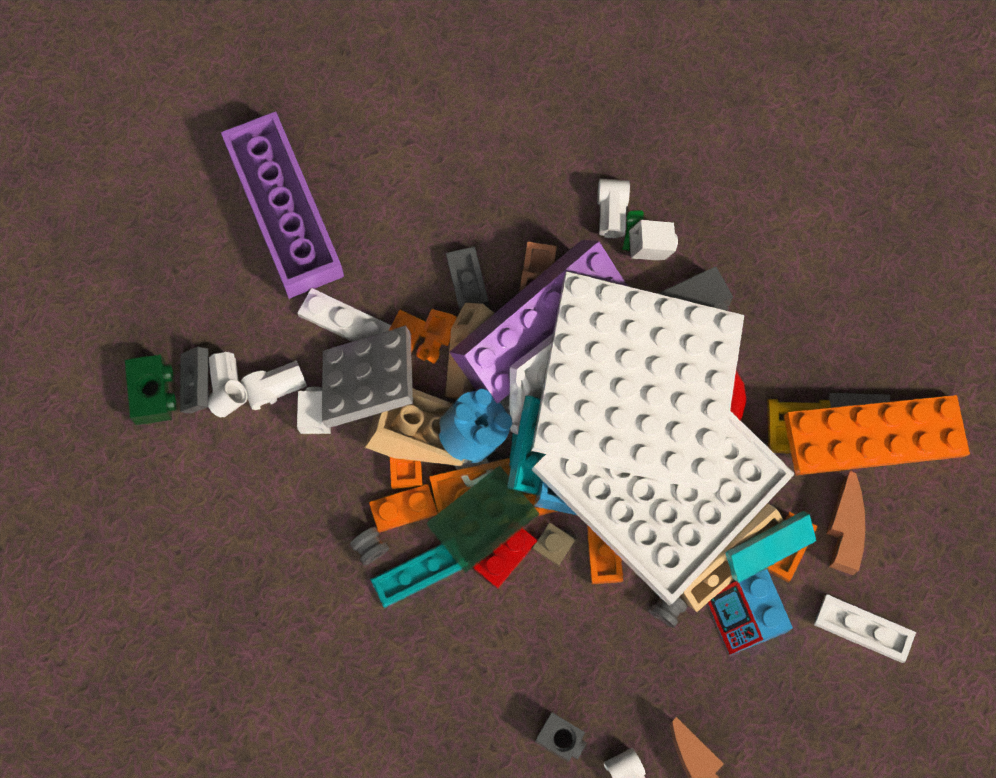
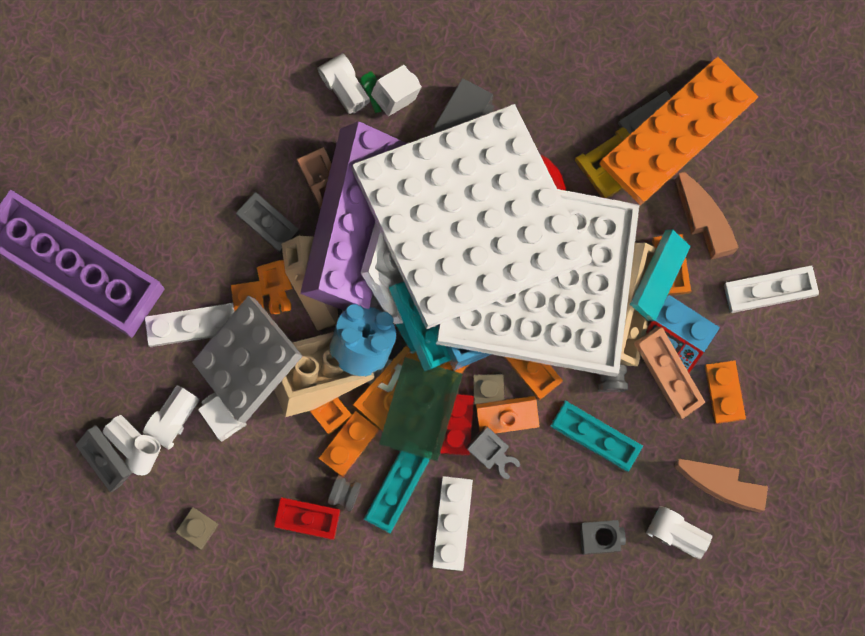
camera: 35 degrees left, 5 degrees up
(140, 375) = (56, 485): dark green brick -> none
(228, 490) = (197, 528): none -> dark tan plate
(323, 545) = (307, 518): none -> red plate
(442, 636) = (452, 523): none -> white plate
(517, 595) = (490, 449): none -> plate
(554, 577) = (508, 414): none -> orange plate
(619, 649) = (596, 436): none -> teal tile
(721, 637) = (669, 372): none -> nougat plate
(760, 690) = (725, 392): none -> orange plate

